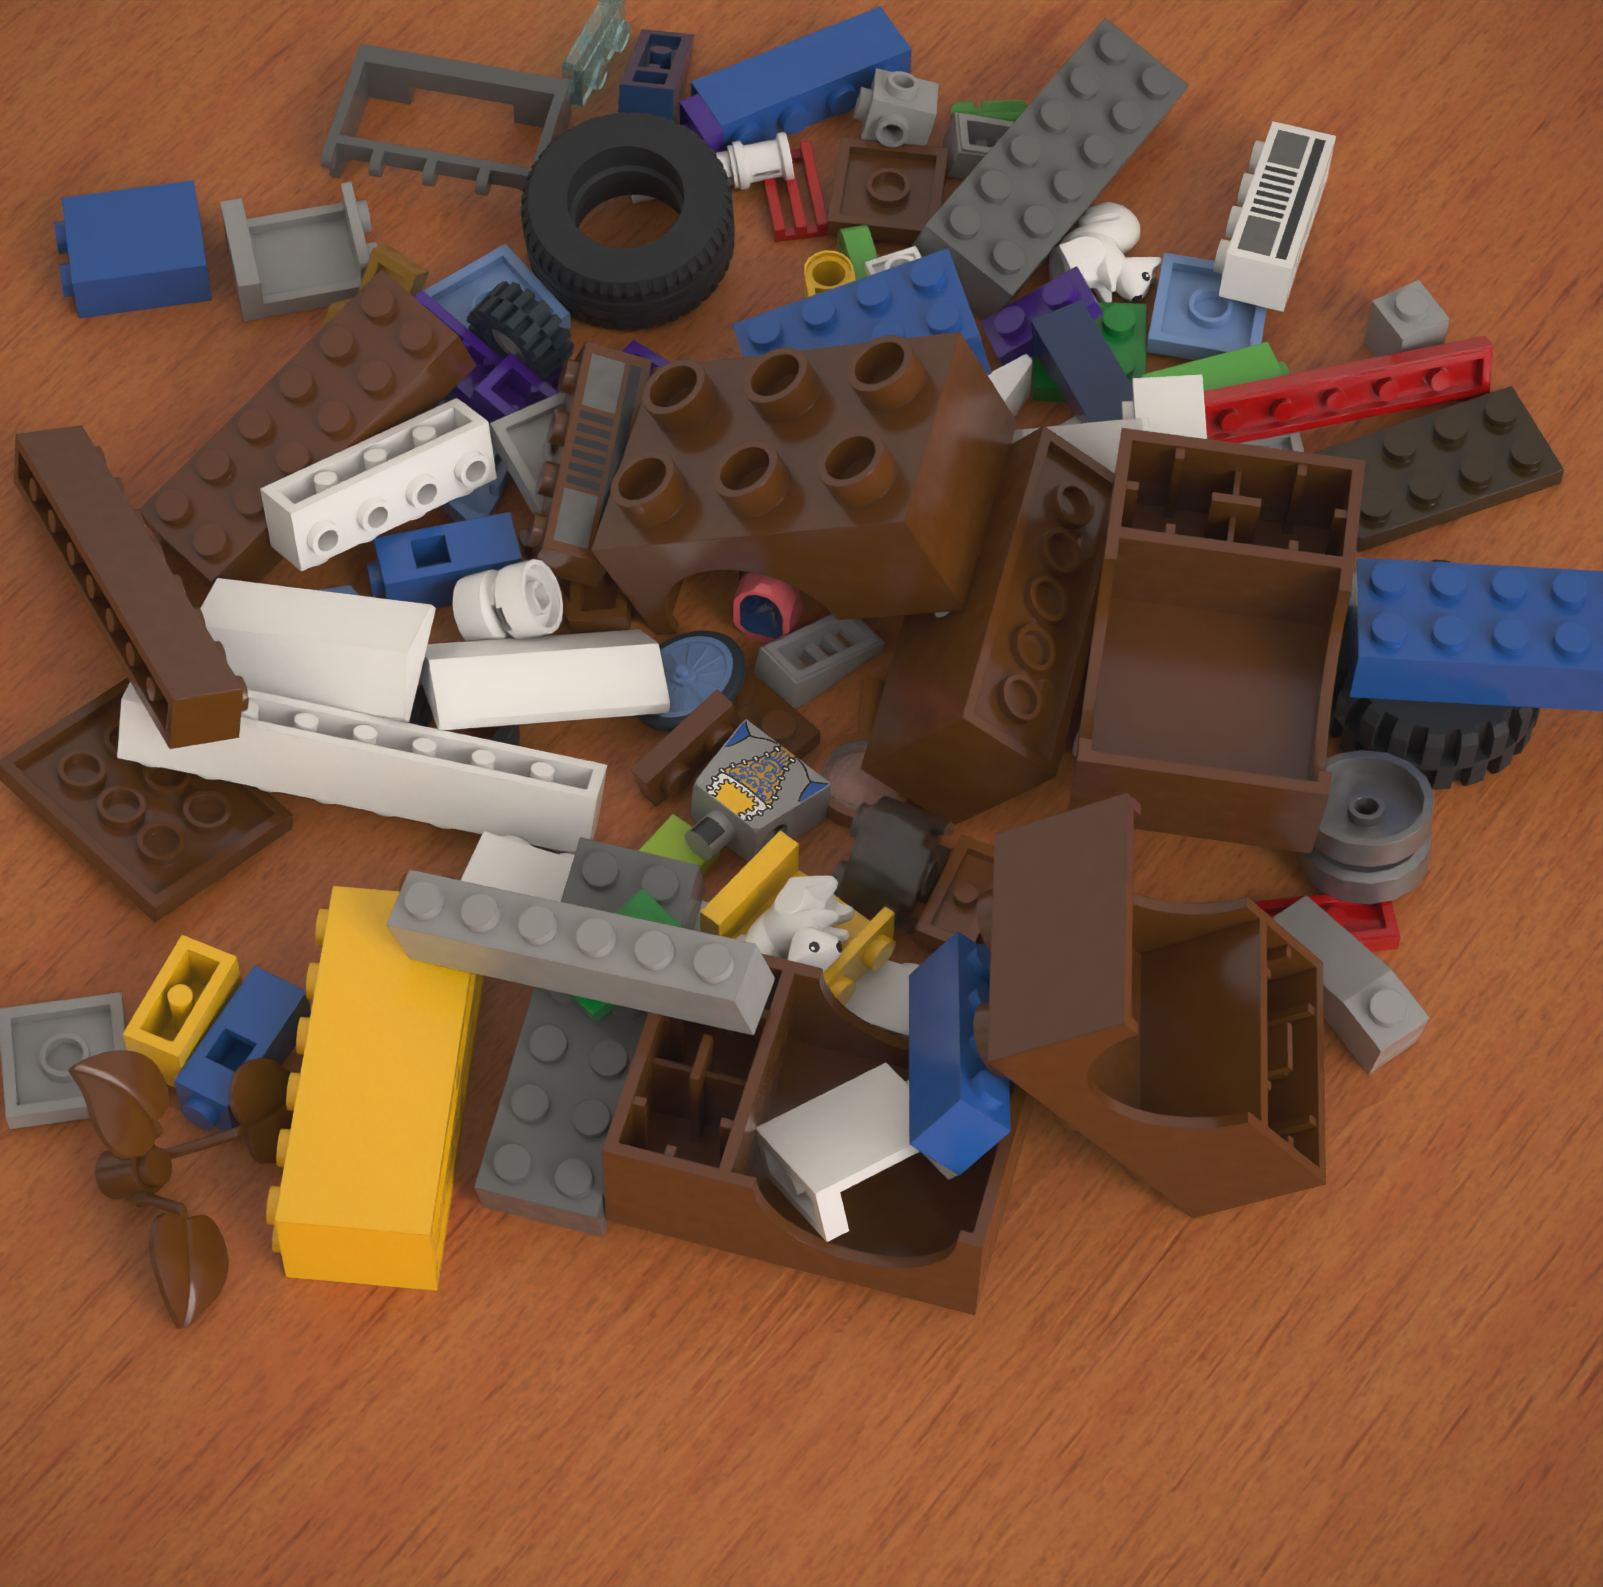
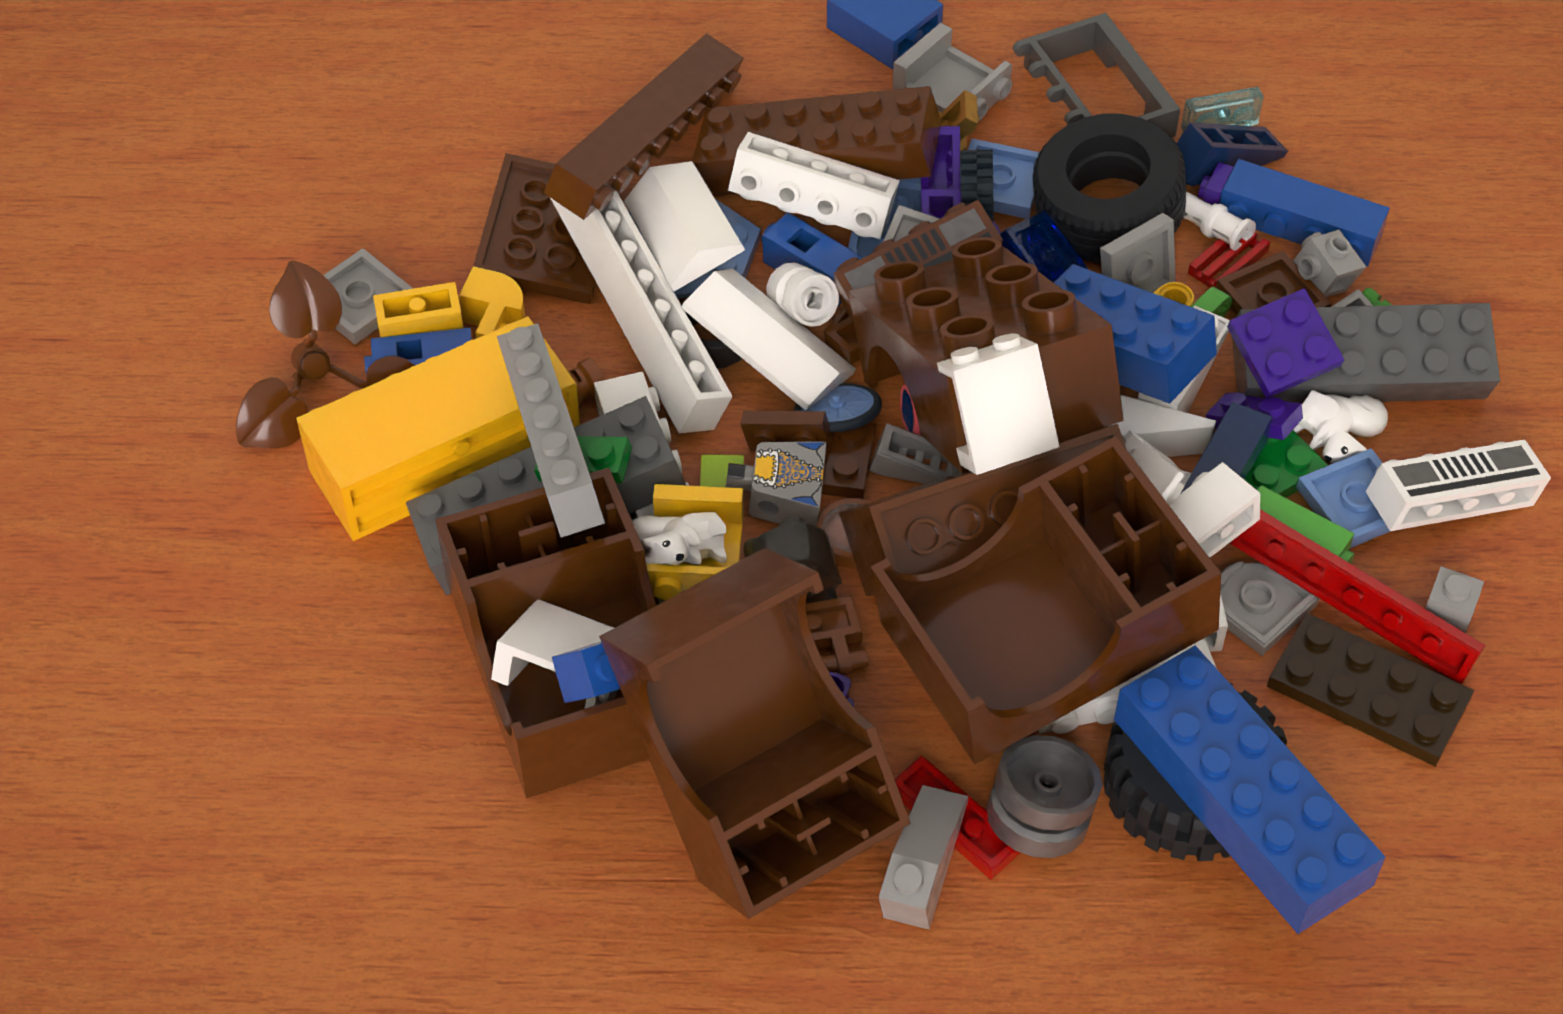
camera: 55 degrees right, 5 degrees down
(231, 917) = (490, 300): none -> yellow brick
(662, 335) = (1041, 244): none -> clear blue plate
(758, 264) = (1142, 255): none -> light grey plate
(968, 494) = (1001, 403): none -> white panel
(1006, 219) = (1285, 343): none -> dark purple plate

